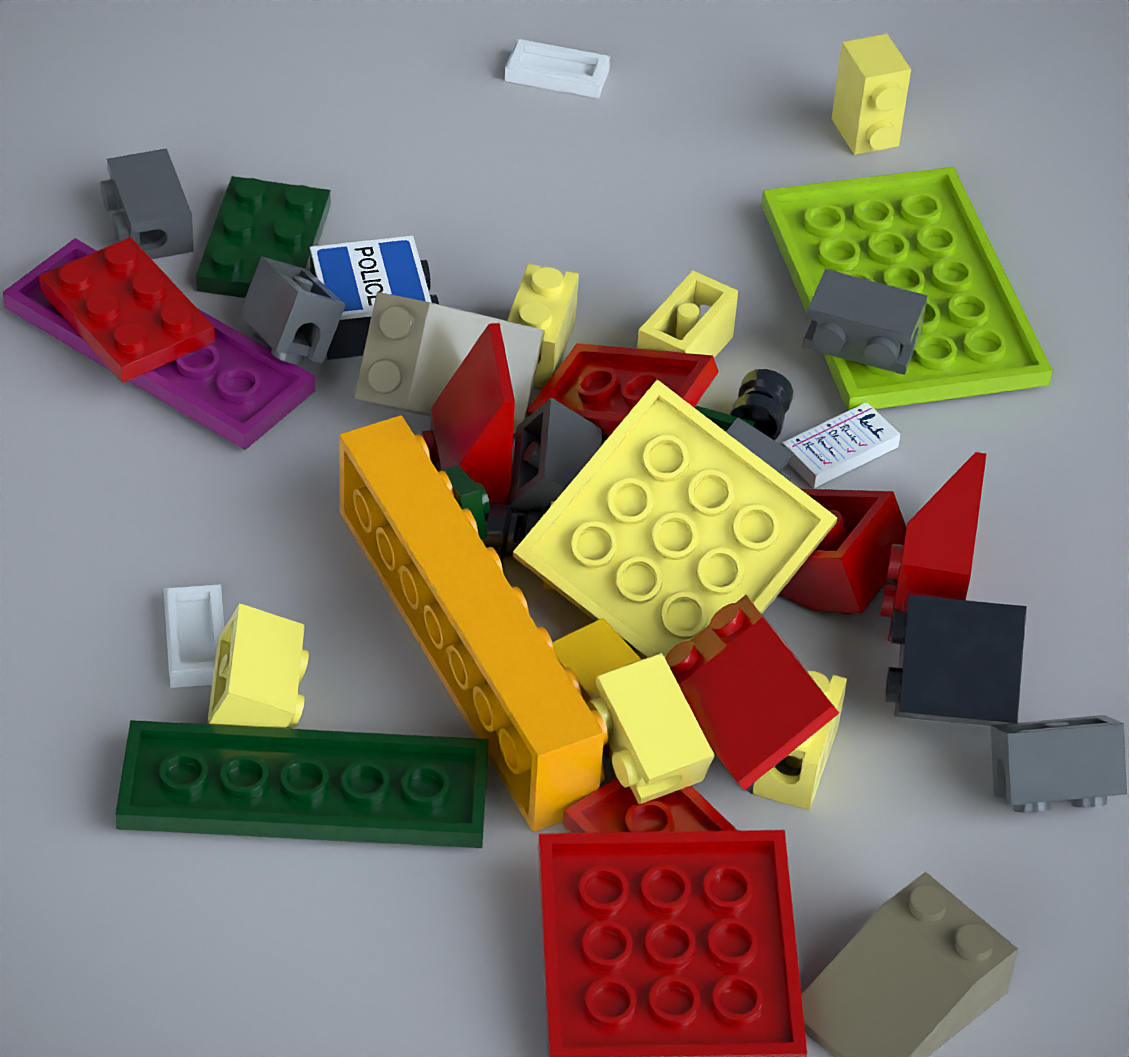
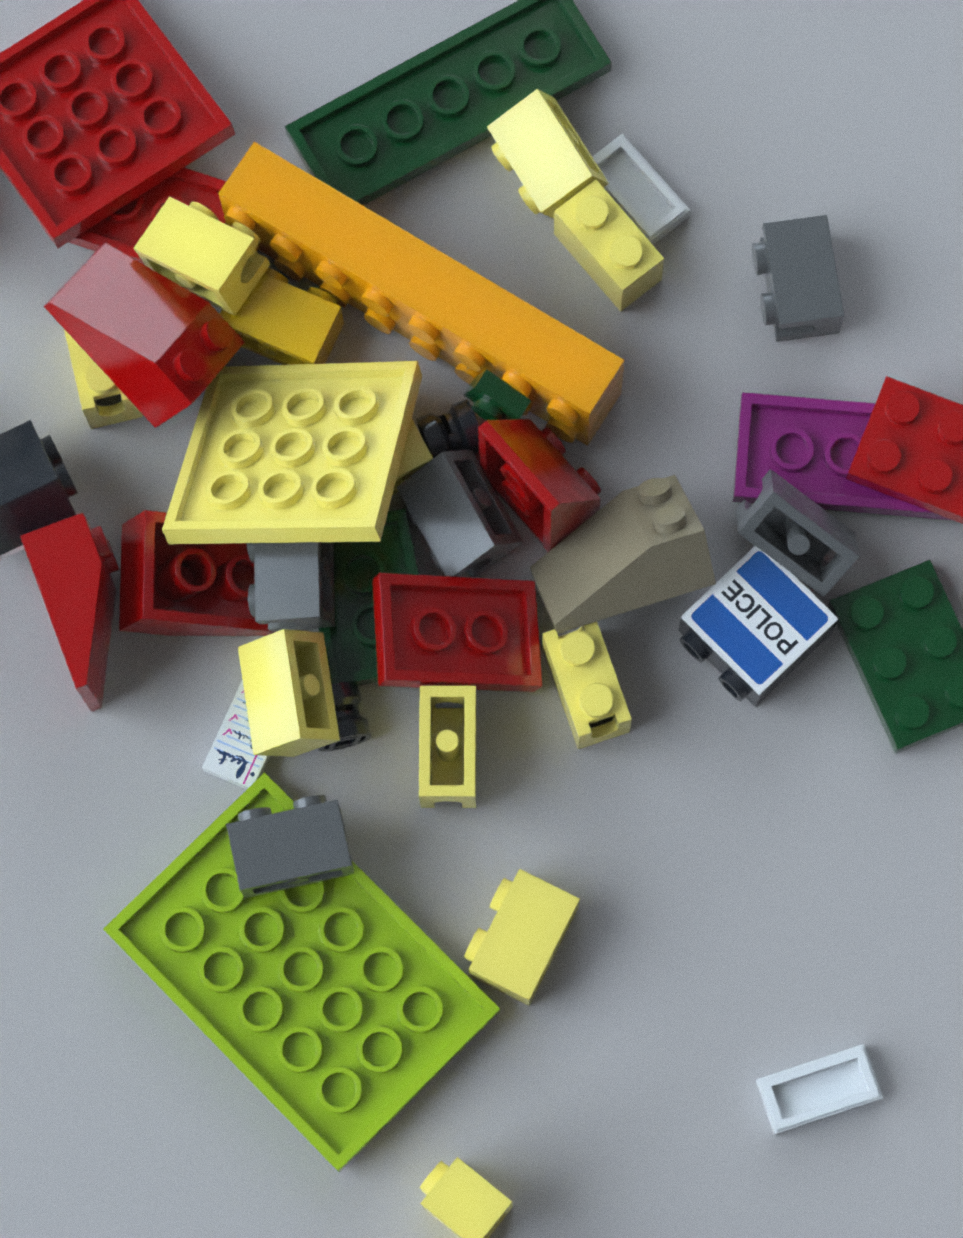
camera: 155 degrees right, 30 degrees up
(118, 487) = (799, 278): none -> dark grey brick
(263, 567) = (608, 245): none -> light yellow brick
(711, 220) = (522, 936): none -> light yellow brick
(801, 403) = (288, 693): none -> light yellow brick

